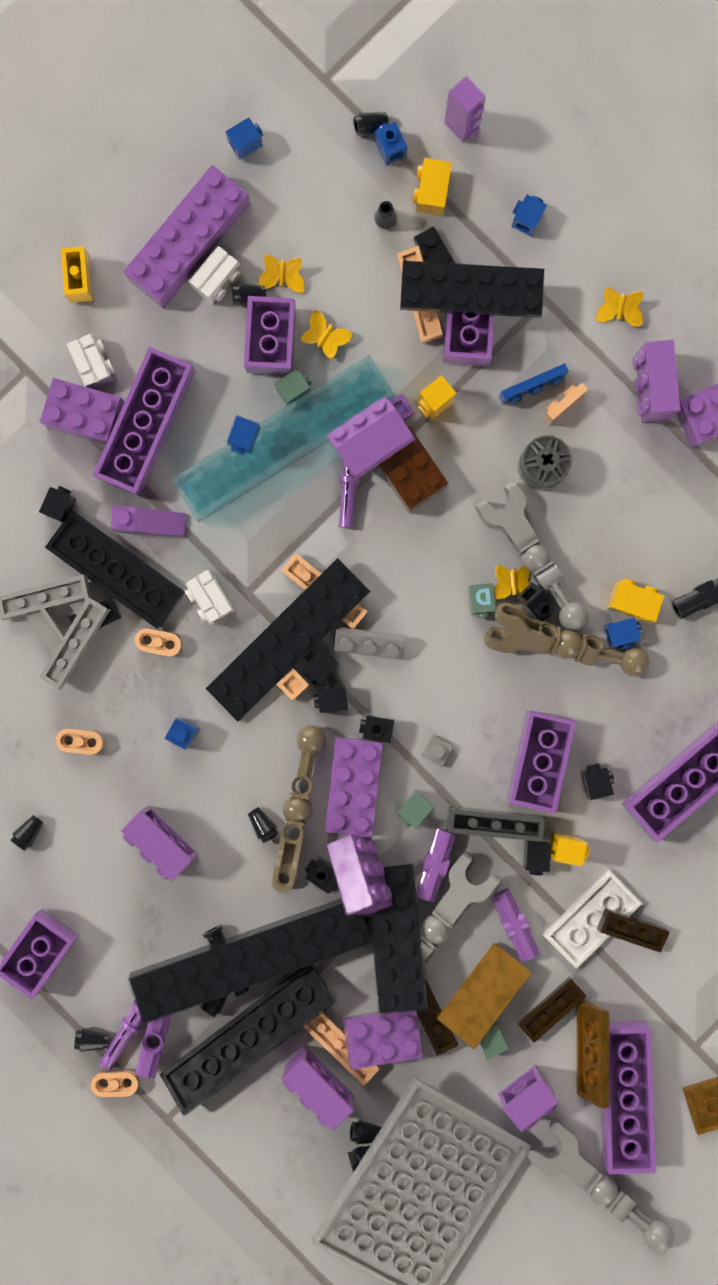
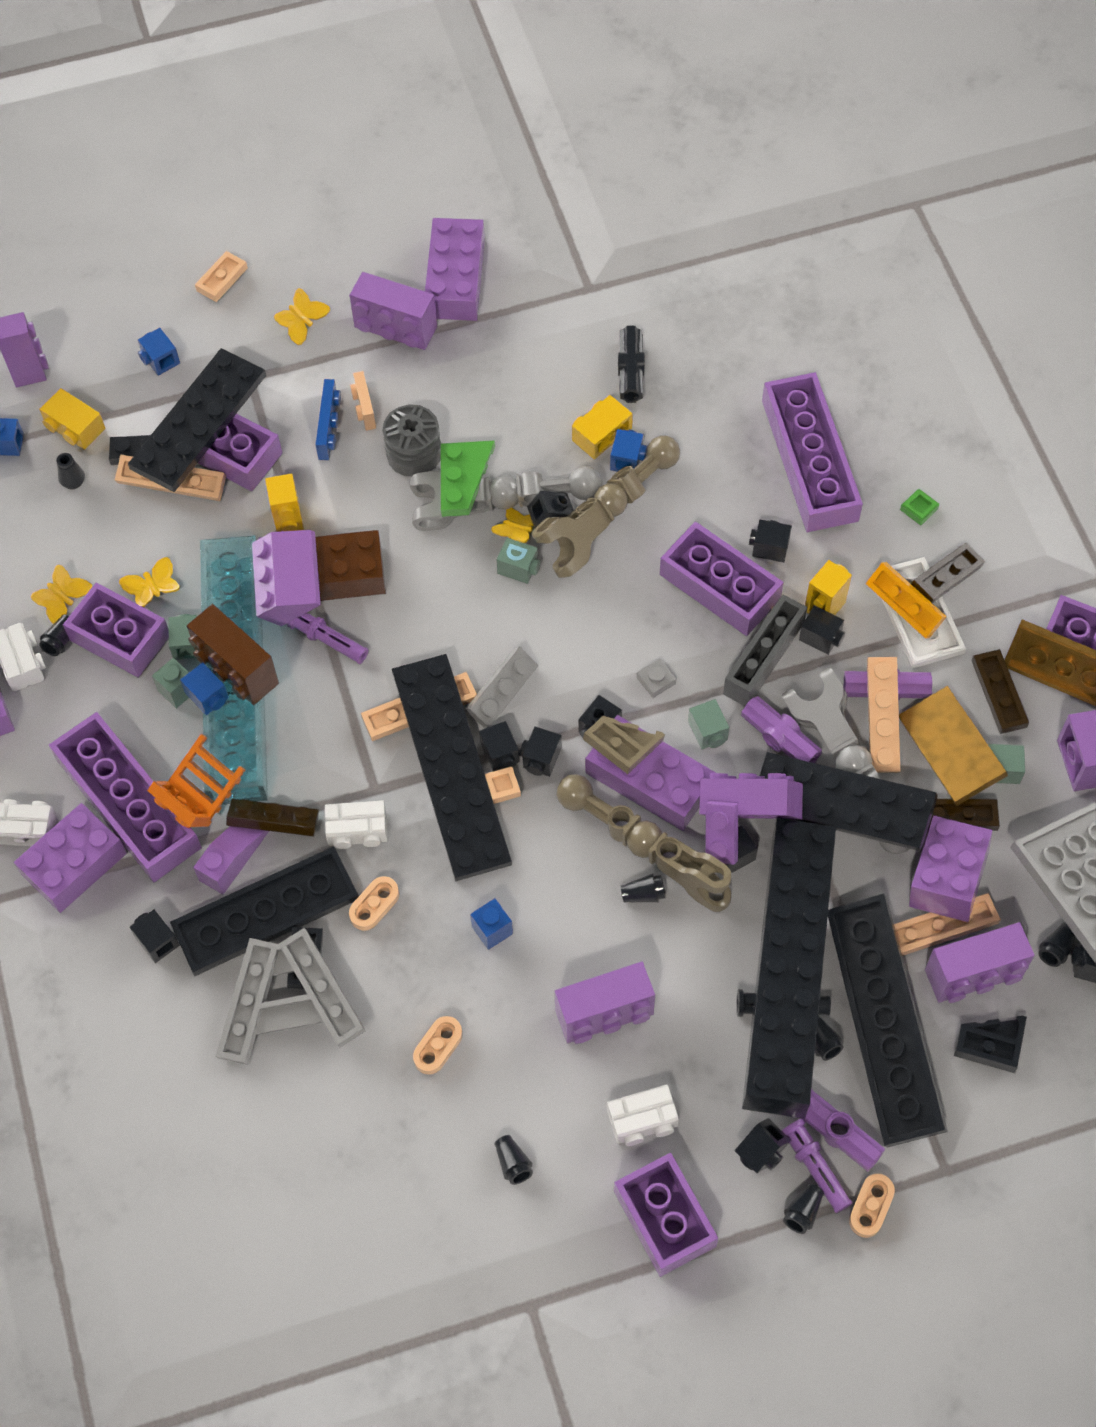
camera: 65 degrees left, 25 degrees down
(99, 904) = (643, 1115): none -> white brick
(115, 996) = (762, 1147): none -> black brick
(154, 472) = (185, 799): none -> orange plate
(184, 535) = (272, 817): none -> dark brown plate
(251, 403) = (168, 682): none -> sand green brick
(270, 1116) = (992, 1043): none -> black wing
(274, 440) = (232, 655): none -> reddish brown brick
(319, 867) = (722, 831): none -> medium lavender plate
(355, 761) = (622, 742): none -> dark tan wing
(485, 934) = (883, 714): none -> light nougat plate
(530, 519) = (461, 474): none -> bright green wing
(591, 910) = (906, 600): none -> light orange plate
(626, 221) = (221, 276): none -> light nougat plate
(688, 880) = (919, 507): none -> bright green tile

